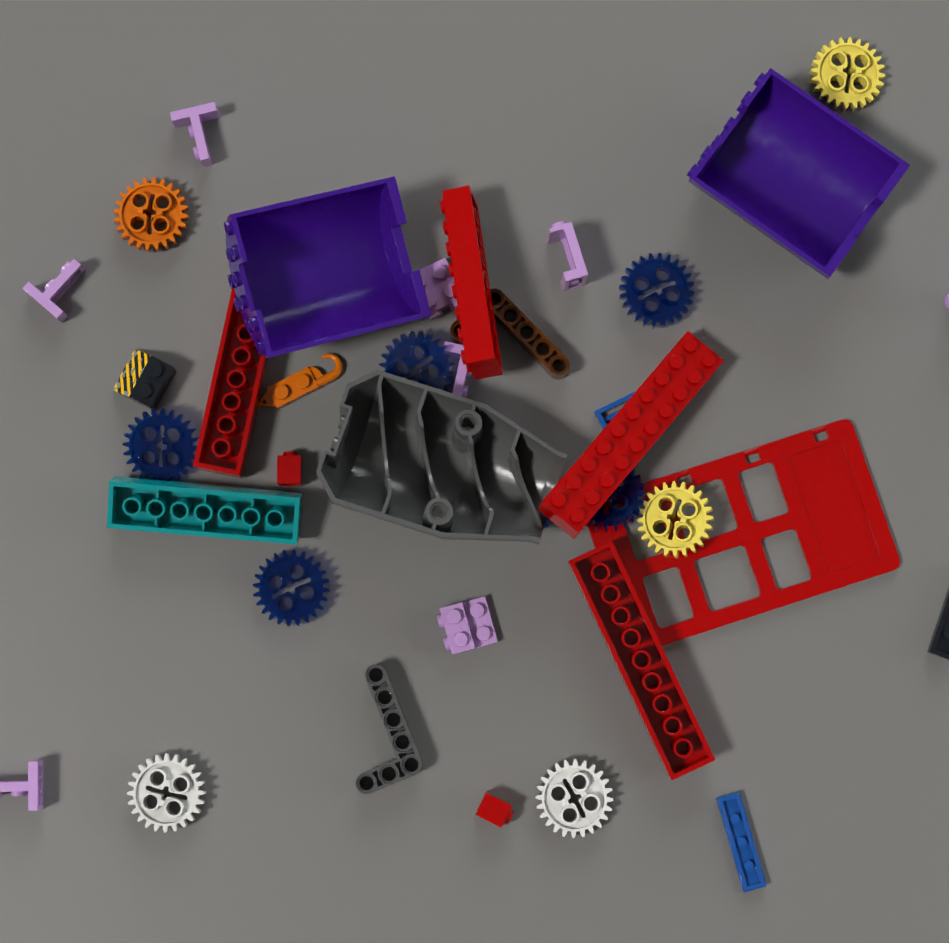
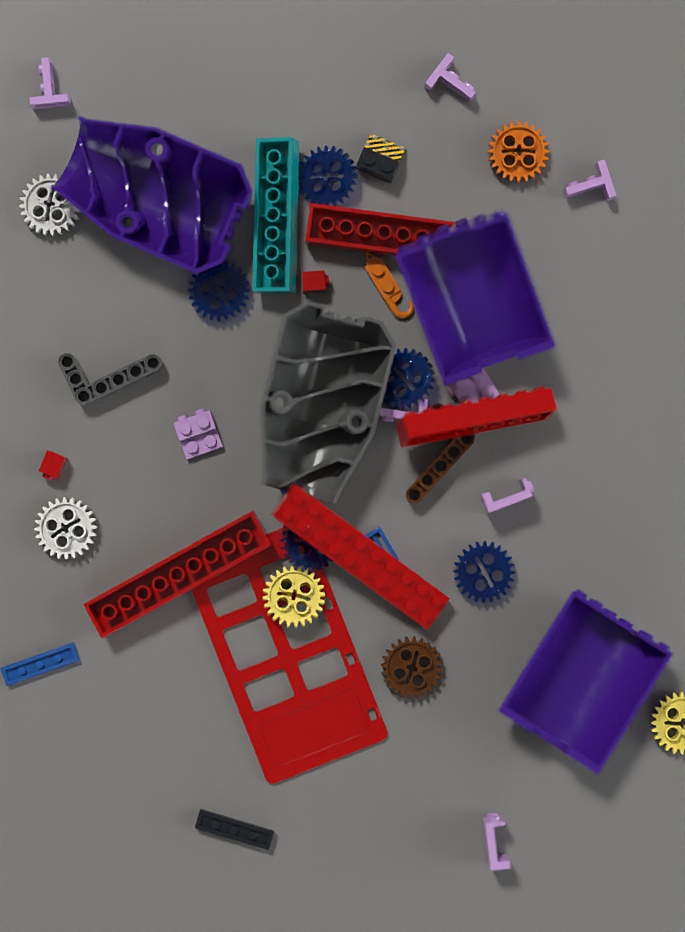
camera: 90 degrees right, 5 degrees up
(174, 629) = (178, 200): none -> dark purple cylinder
(759, 403) = (429, 672): none -> reddish brown gear

